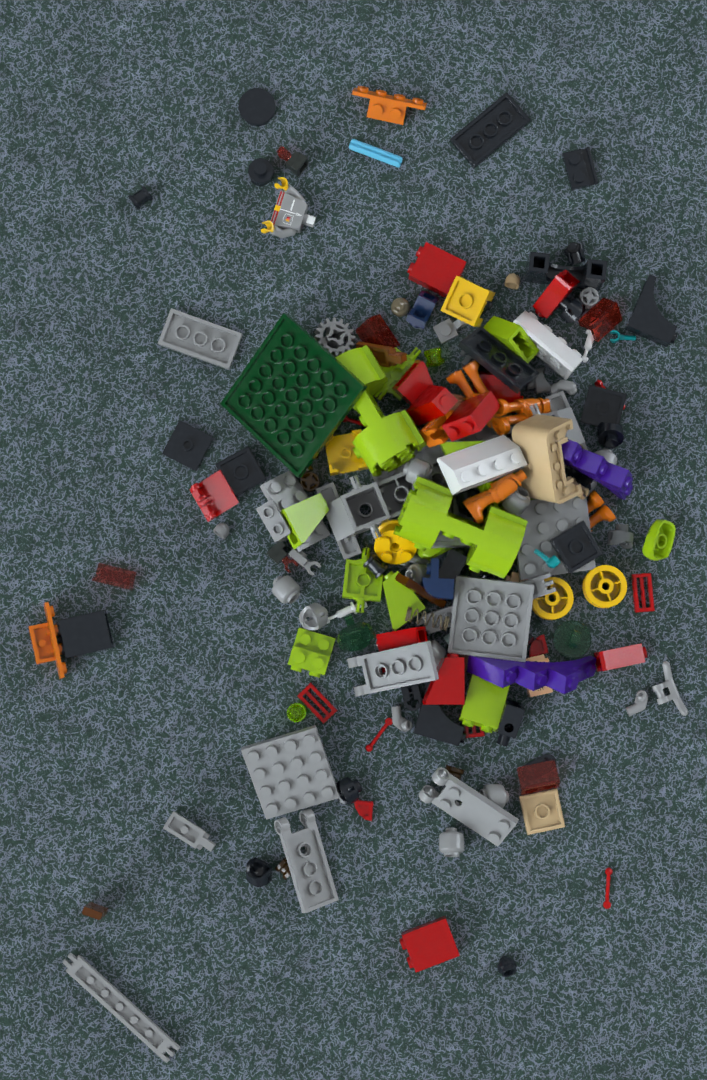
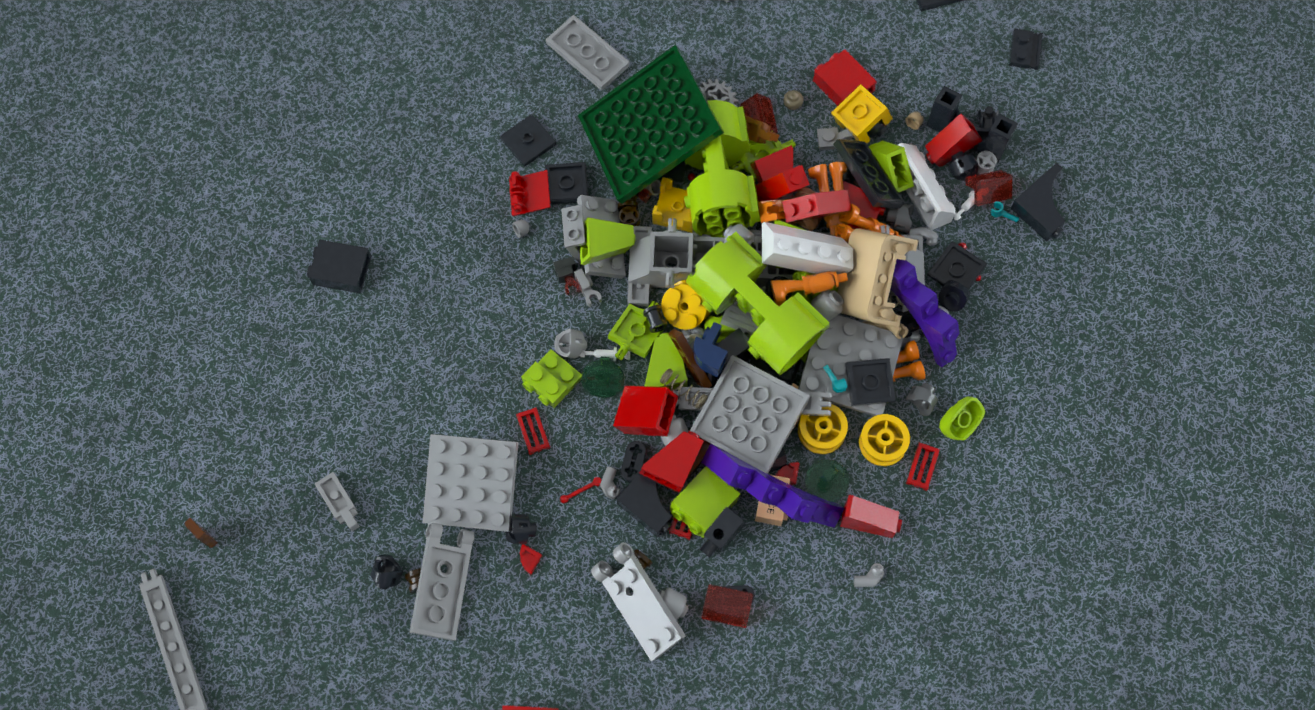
camera: 25 degrees right, 15 degrees down
(45, 642) = (296, 258): orange bracket -> none
(115, 576) = (396, 227): clear red panel -> none
(286, 589) = (555, 307): light grey head -> none
(296, 712) = (505, 425): clear neon green wheel -> none
(402, 665) = (636, 422): light grey hinge -> none
(422, 309) = (813, 109): dark blue brick -> none
(433, 357) = (805, 155): clear neon green wheel -> none
(451, 842) = (603, 633): light grey head -> none
(542, 811) = (715, 645): tan tile -> none
(674, 695) = (913, 572): light grey piece -> none

